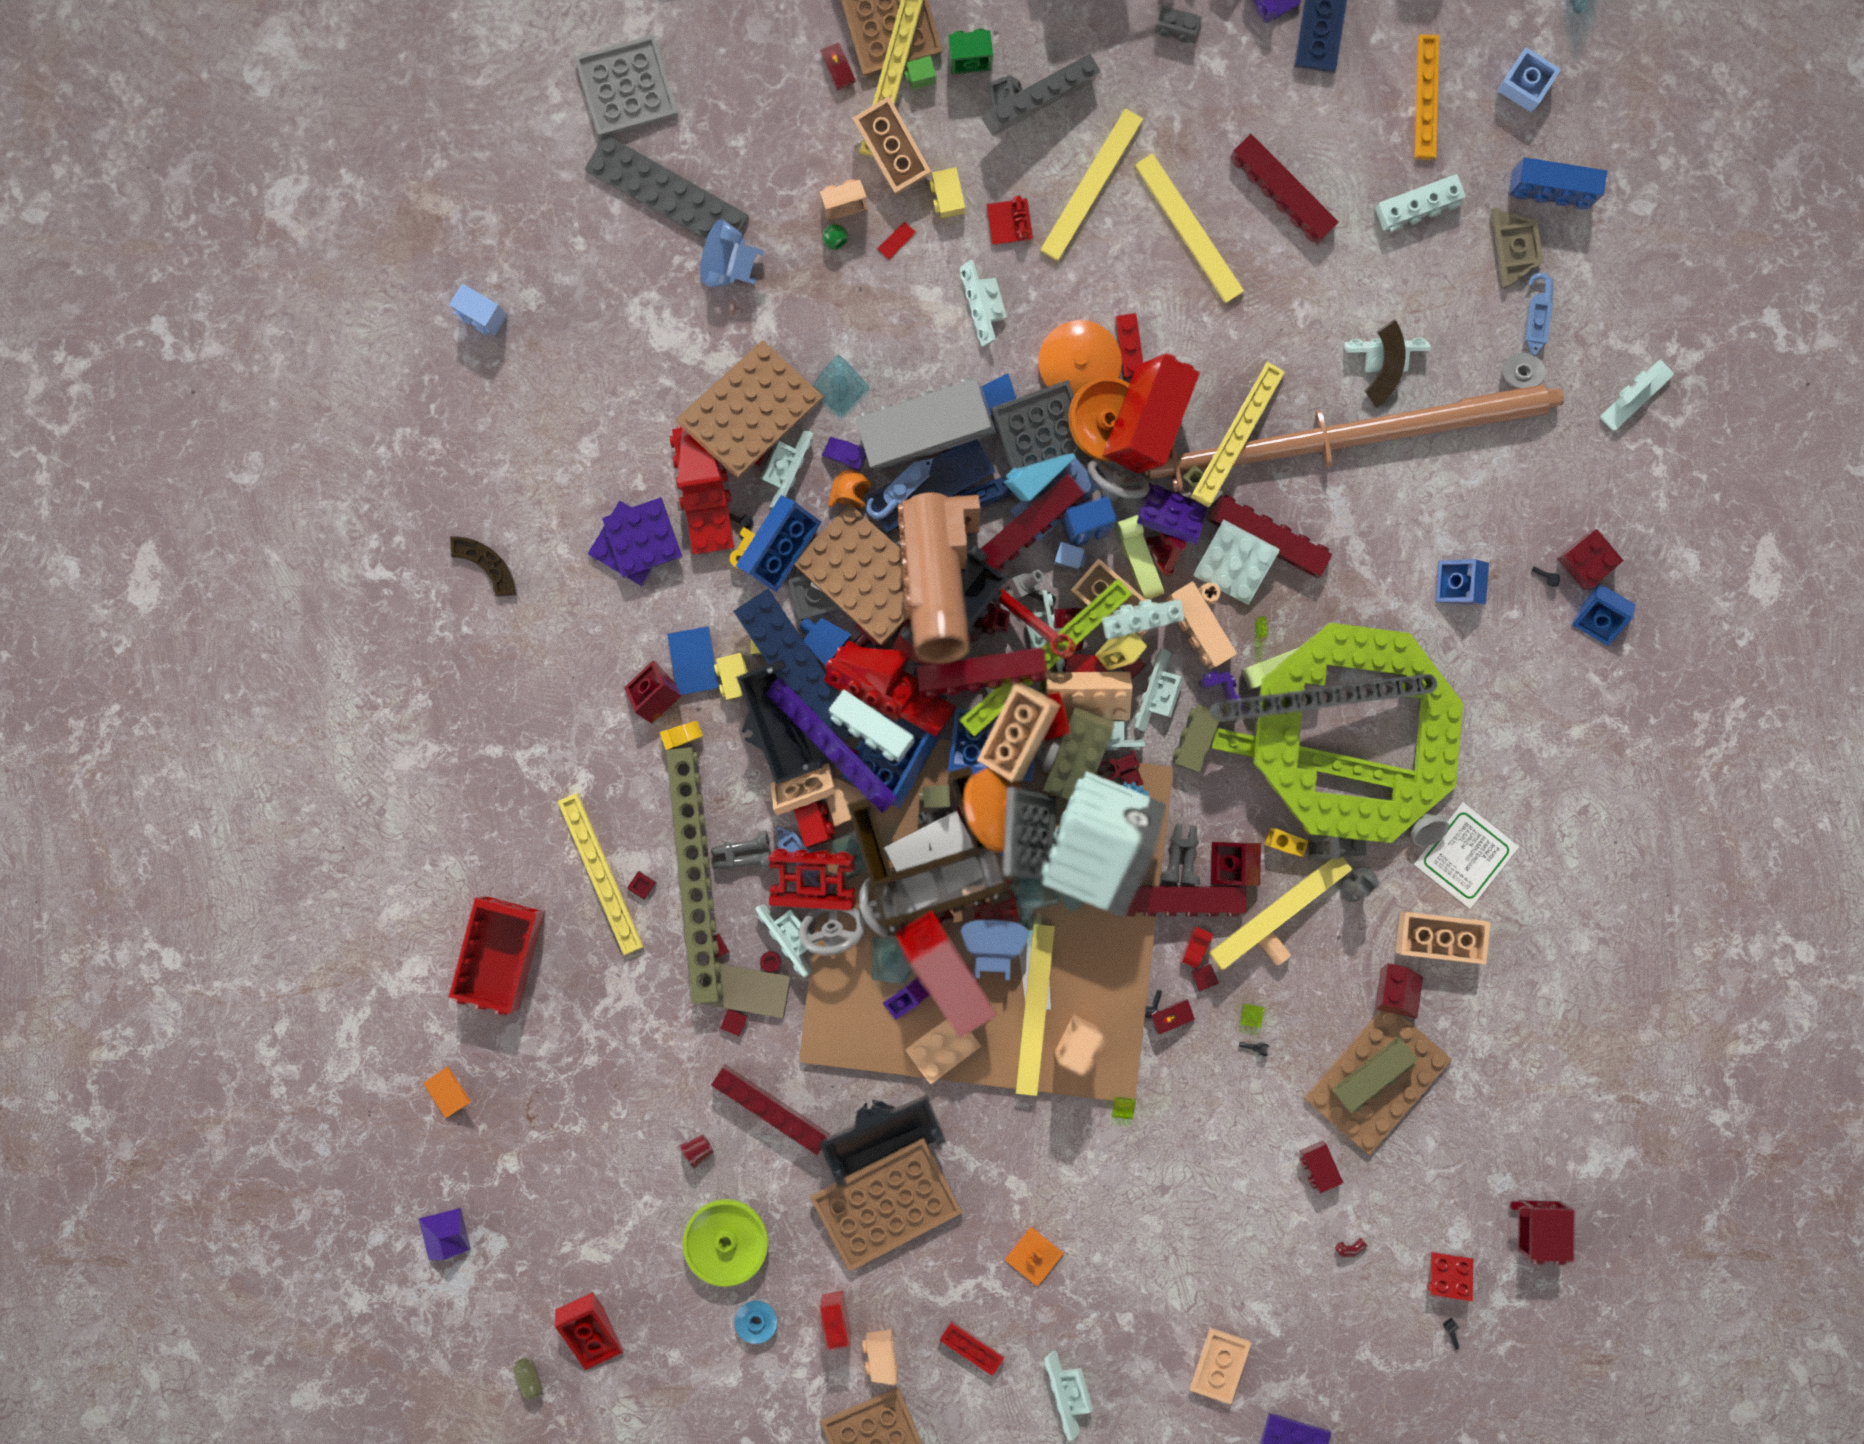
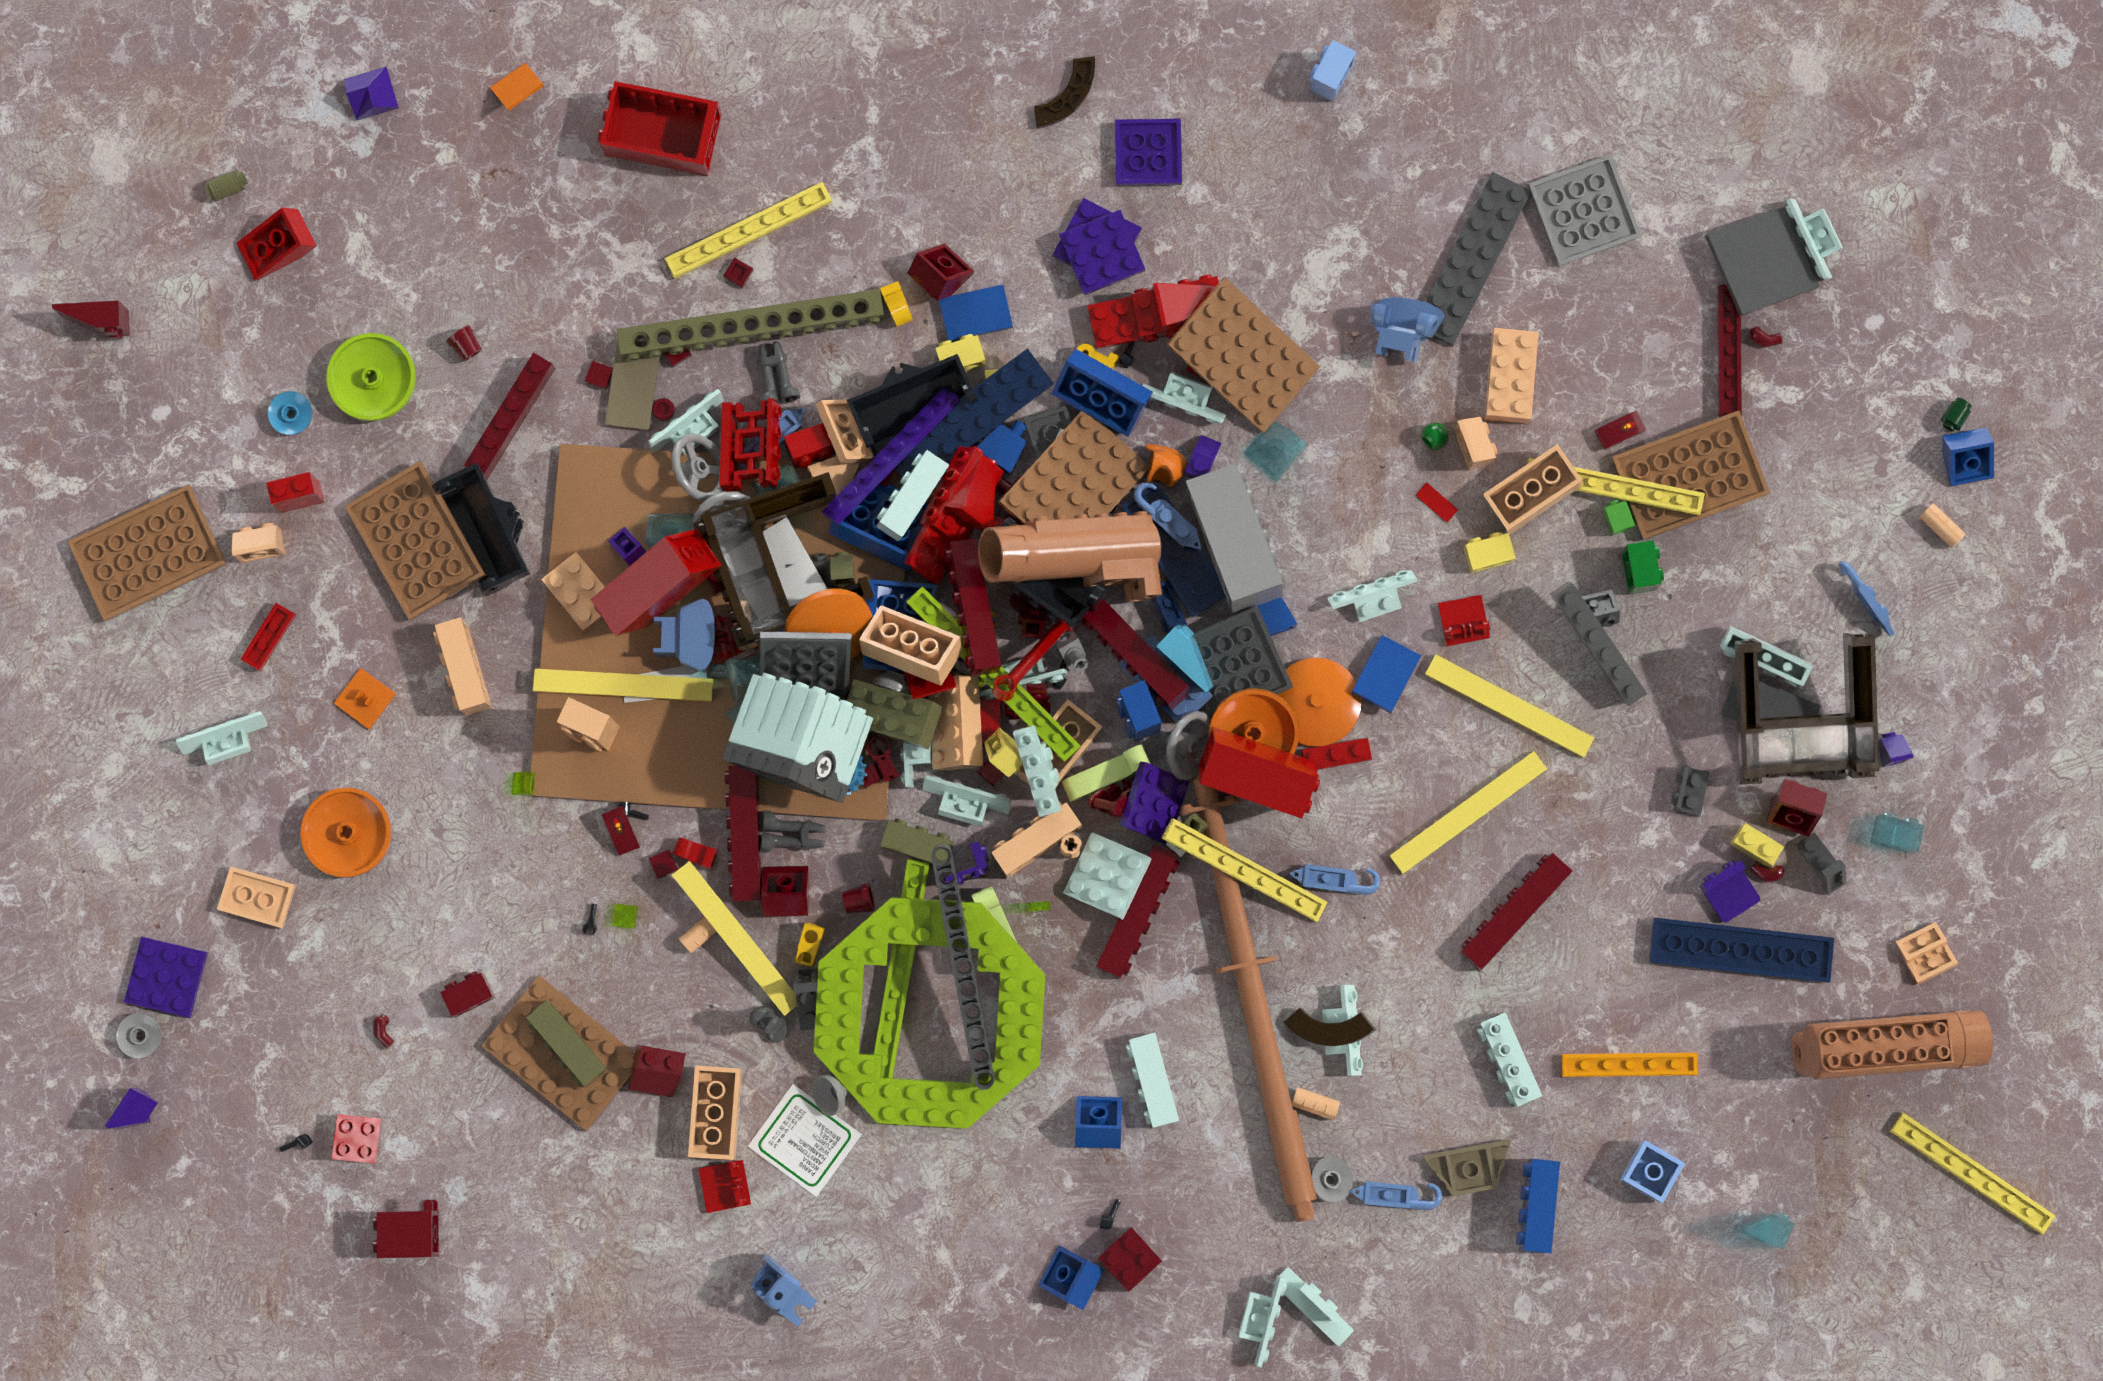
camera: 85 degrees right, 5 degrees down
(546, 490) = (1148, 152): none -> dark purple plate
(781, 162) = (1511, 376): none -> light nougat brick
(1011, 1162) = (463, 666): none -> light nougat brick
(1057, 295) = (1386, 674): none -> blue tile
(1070, 556) = (1104, 700): light blue brick -> none
(1164, 1279) = (346, 832): none -> orange dish
(1246, 353) = (1334, 879): none -> medium blue plate
(1247, 794) = (859, 899): none -> dark red piece
(1426, 529) = (1153, 1080): none -> light aqua brick
(1453, 382) = (1315, 1103): none -> light nougat axle
(1508, 931) = (724, 1186): none -> red hinge
(1614, 873) = (785, 1282): none -> medium blue piece
(1647, 442) = (1259, 1319): none -> light aqua bracket

